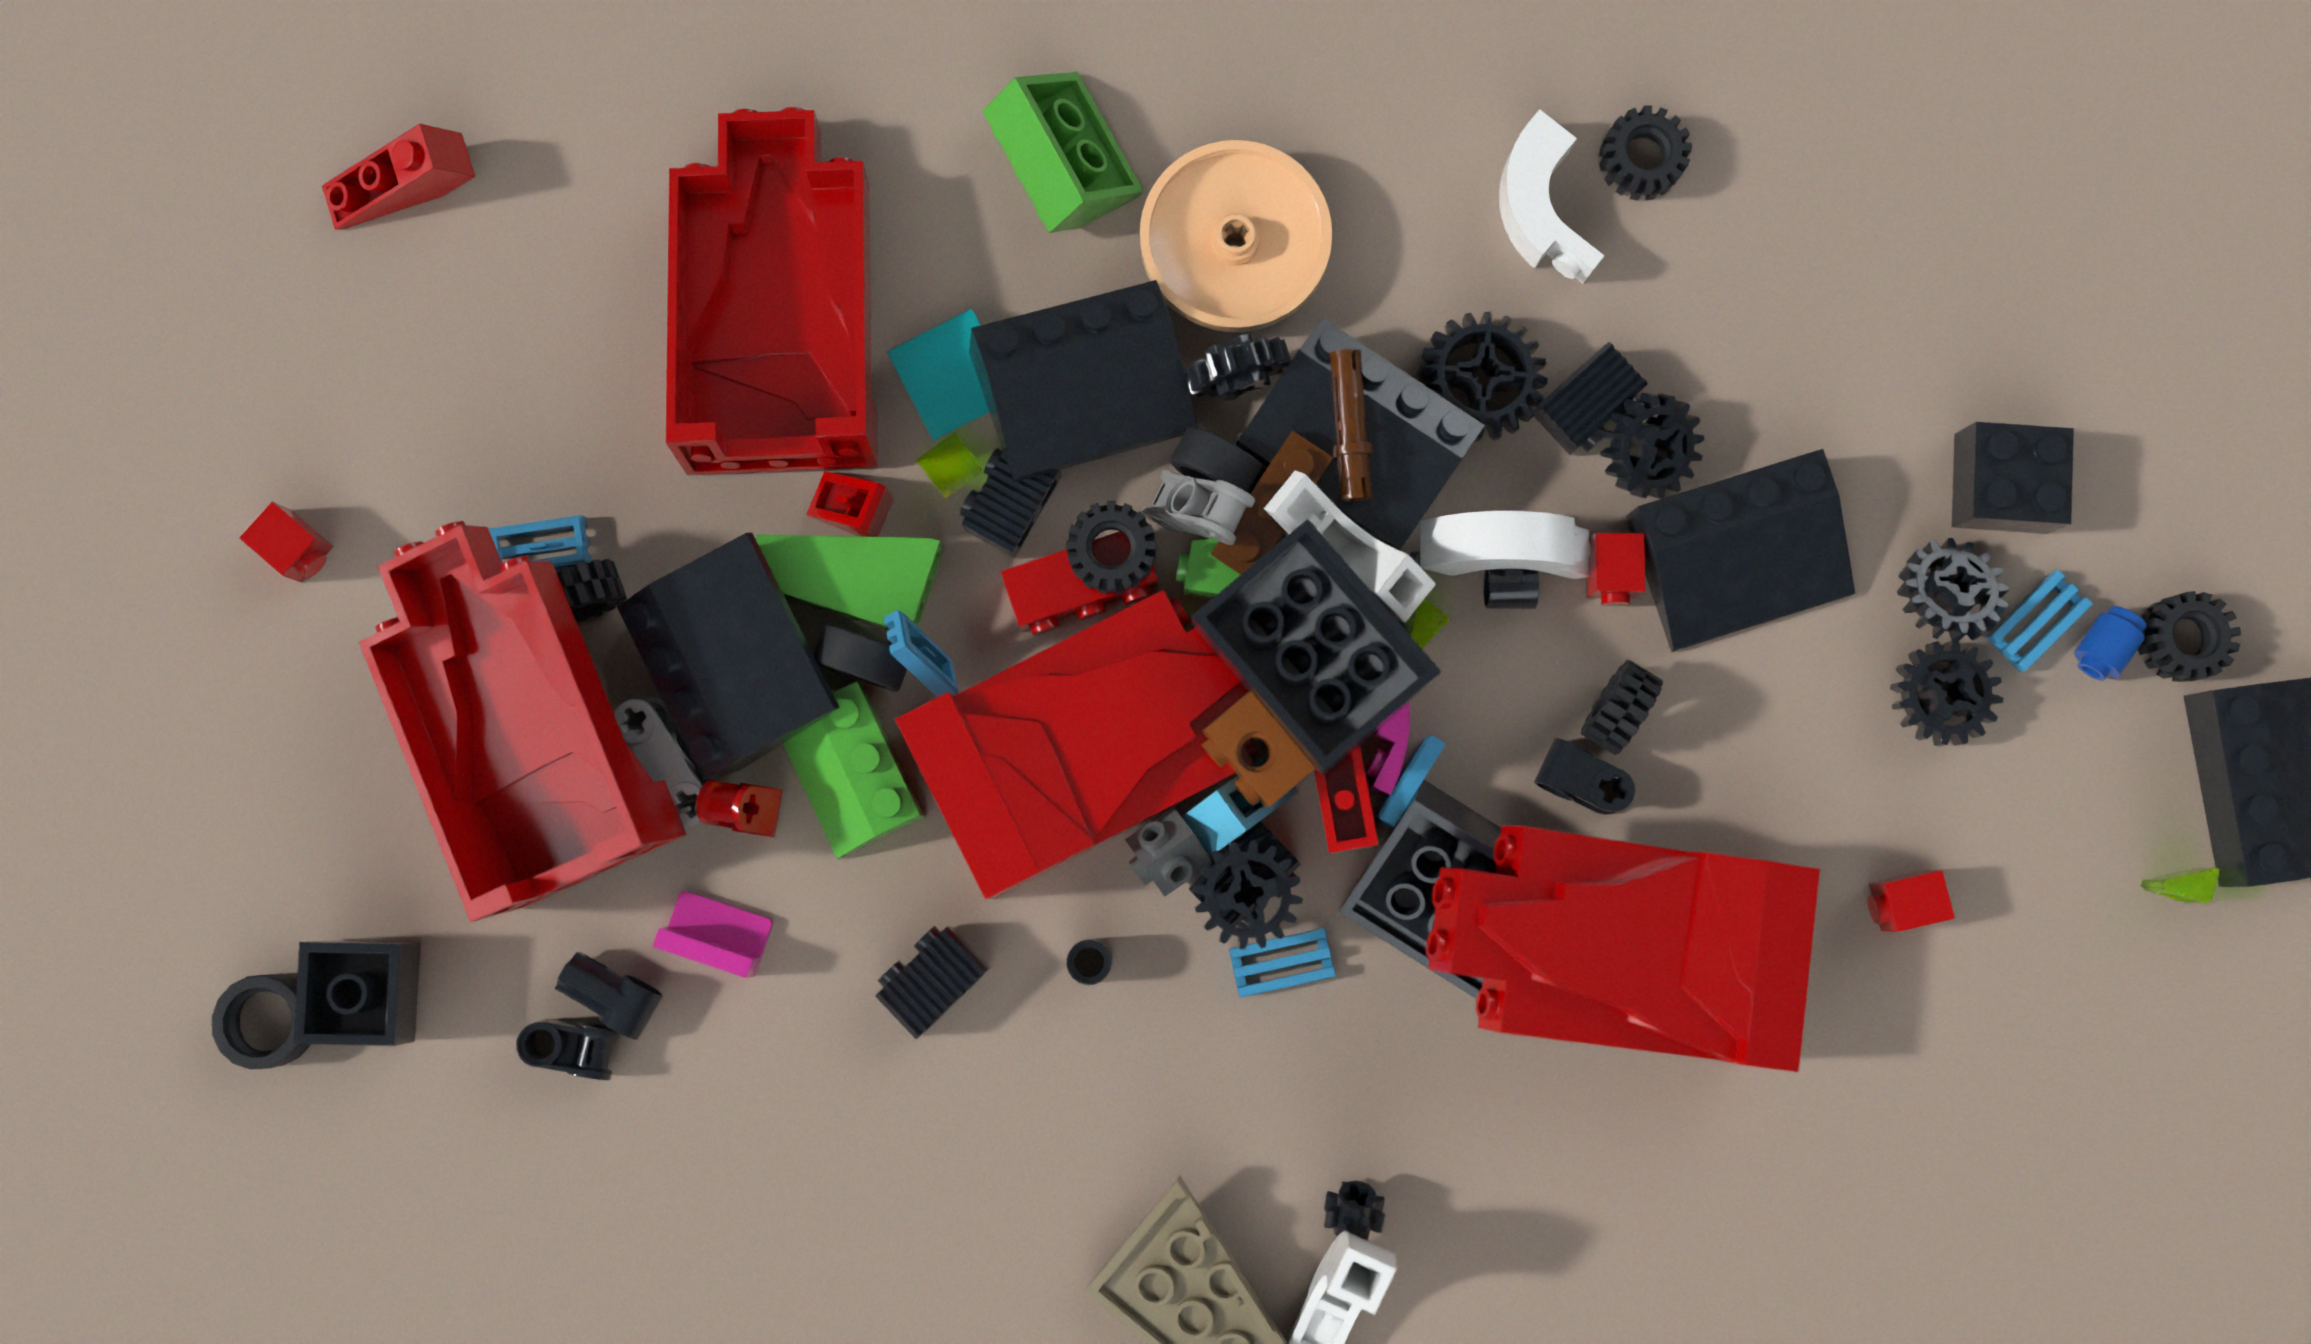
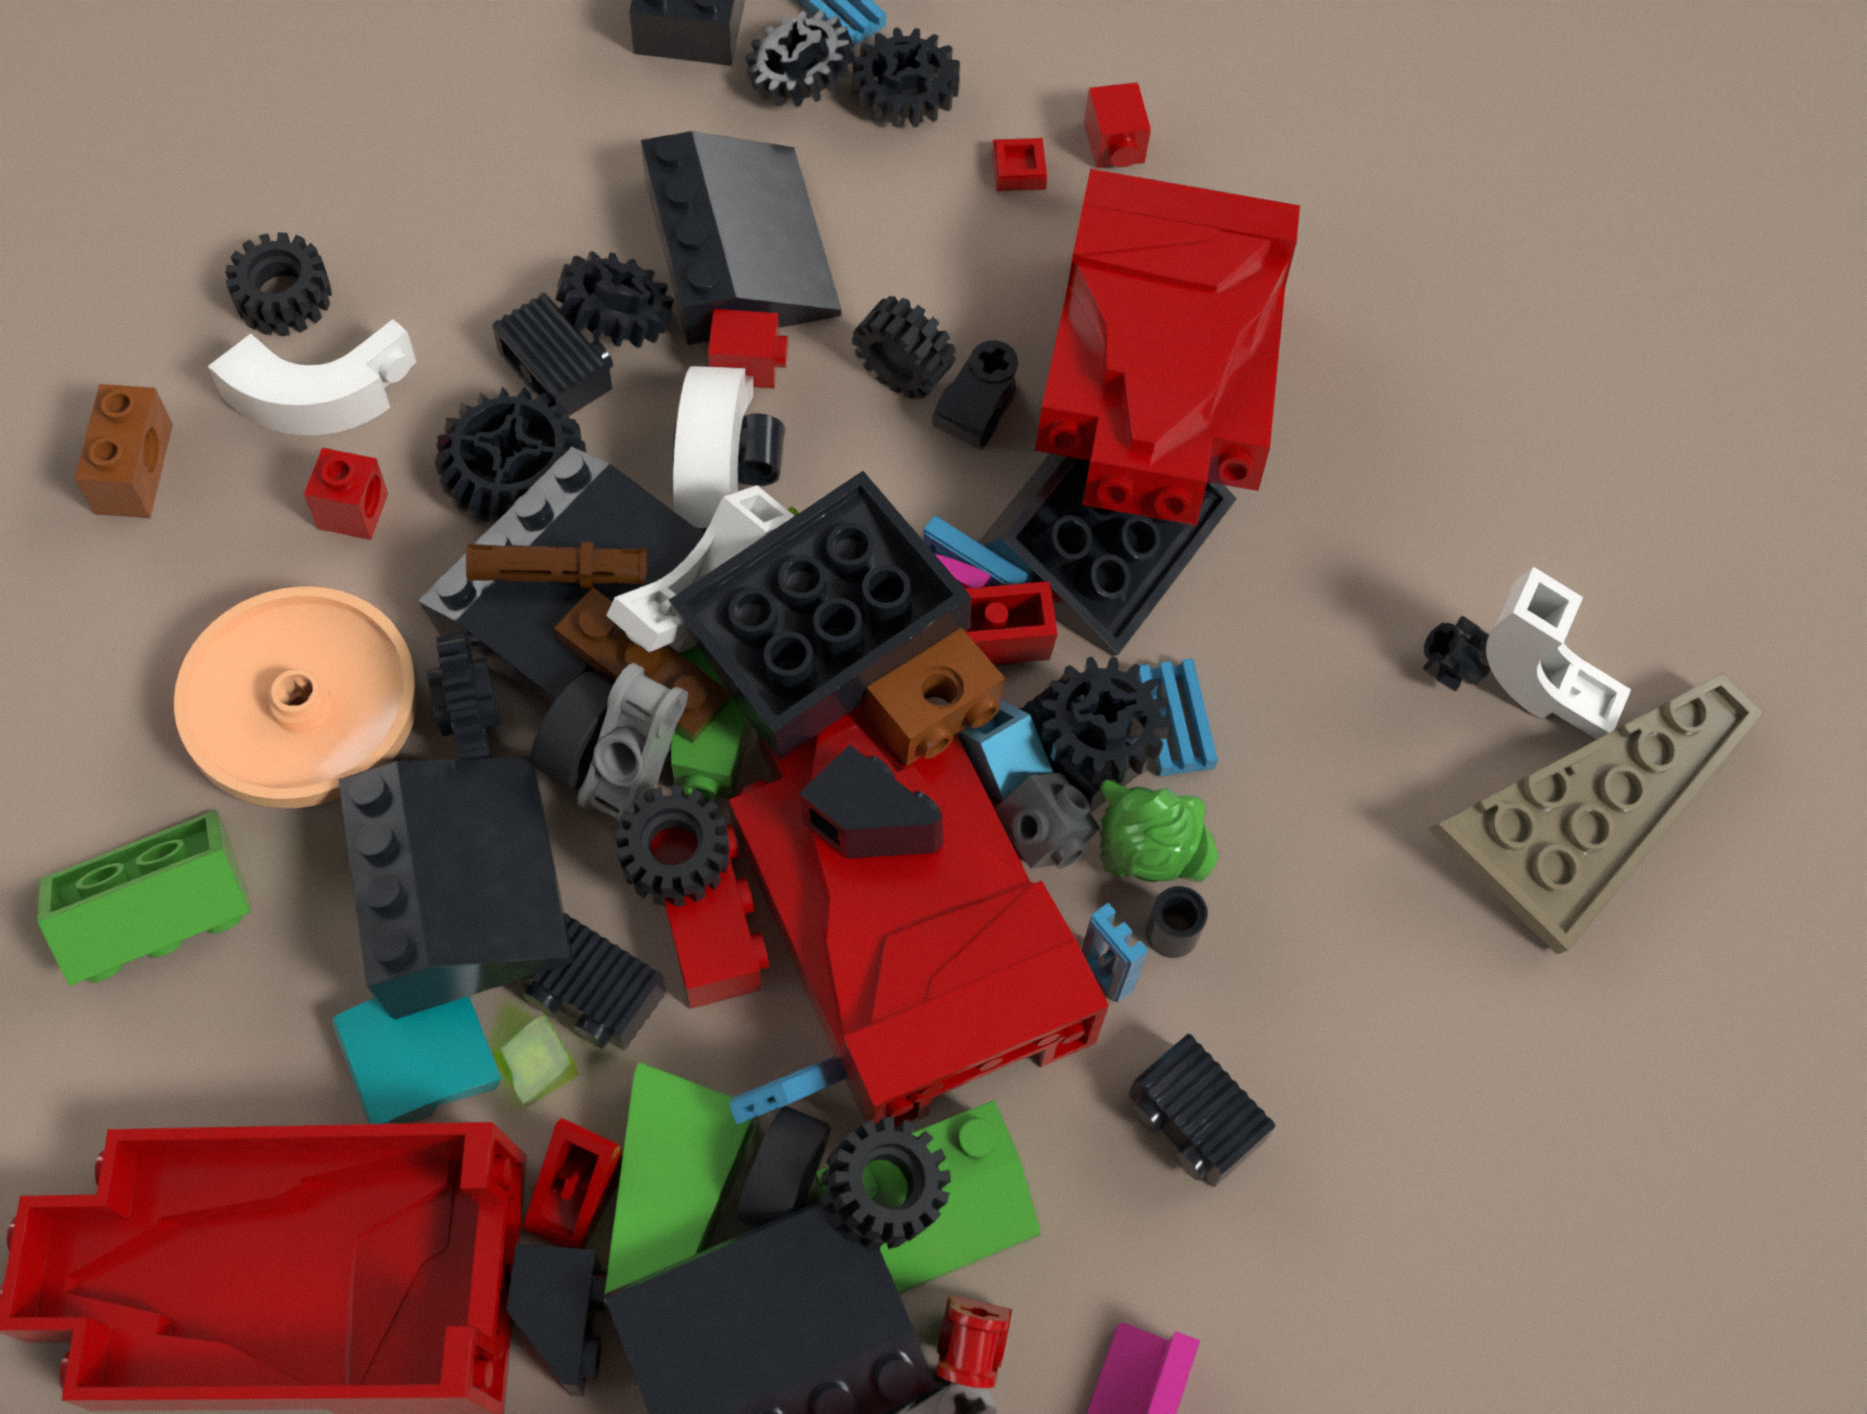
camera: 90 degrees left, 20 degrees down
(757, 500) = (555, 1307): none -> black slope
(827, 760) = (914, 1160): none -> black tyre
(1047, 905) = (1119, 960): none -> dark azure tile
(1139, 696) = (867, 811): none -> black slope
(1155, 943) = (1155, 835): none -> bright green hair
(1431, 244) = (346, 493): none -> red brick
(1457, 57) = (124, 451): none -> dark orange brick
(1860, 808) = (1019, 164): none -> red tile

